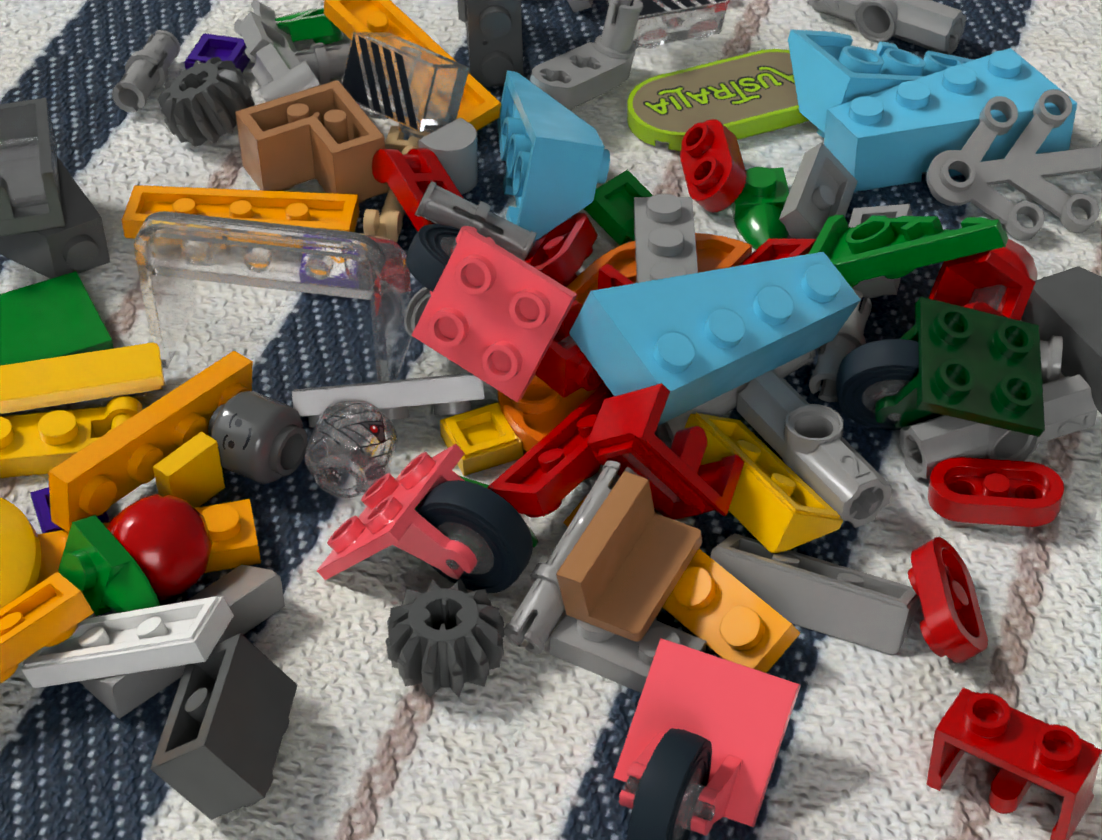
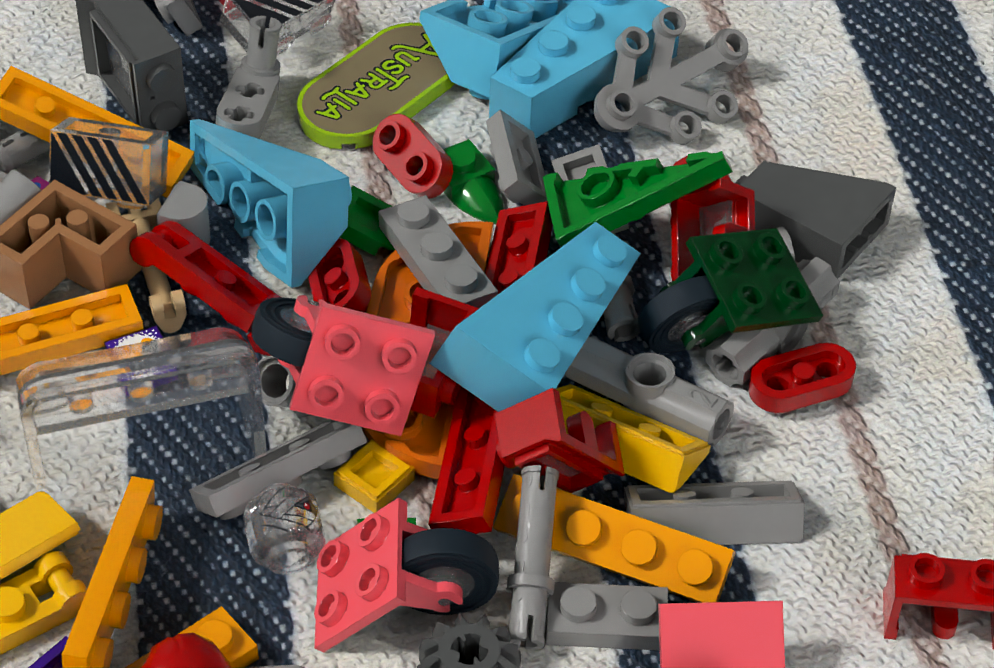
camera: 30 degrees left, 5 degrees up
(191, 471) = (157, 605): yellow tile -> none
(258, 437) = (196, 548): dark grey head -> none
(452, 210) = (257, 279): light grey pin -> none
(626, 562) = (589, 549): medium nougat panel -> none
(948, 601) = (809, 469): red plate -> none

